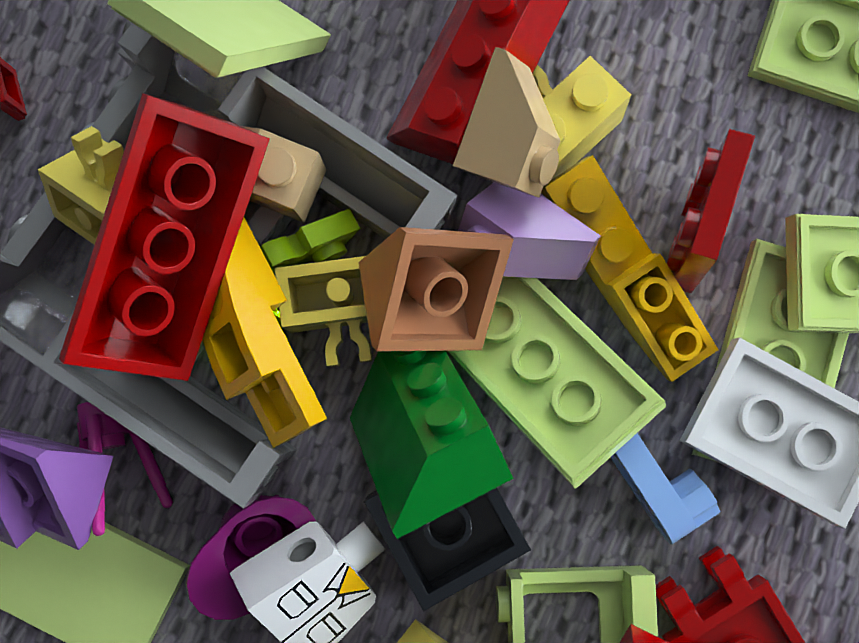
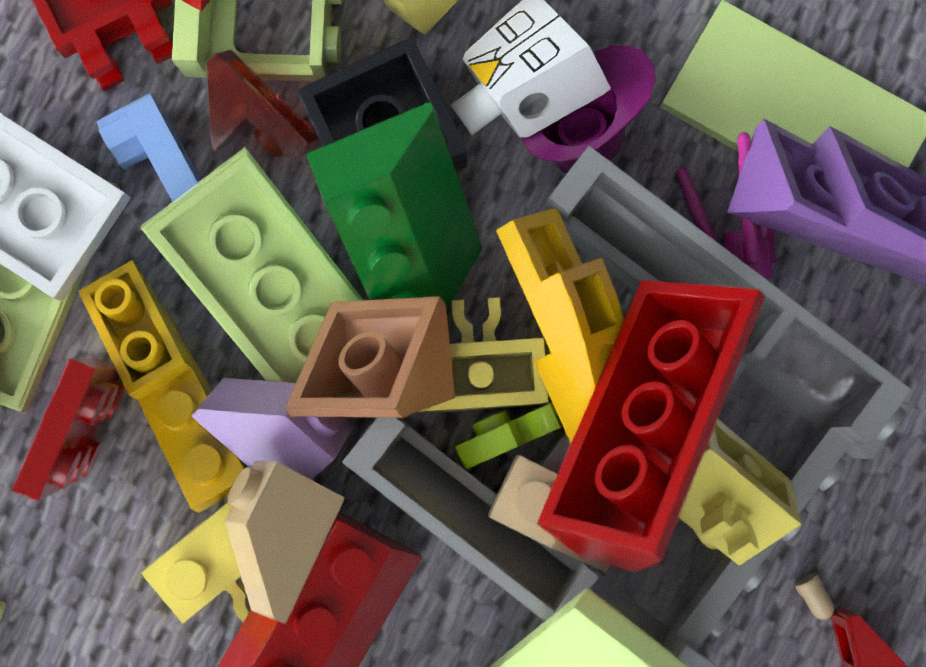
camera: 170 degrees left, 0 degrees up
(39, 128) = (815, 596): none -> tan piece
(583, 545) = (243, 97): none -> clear red slope

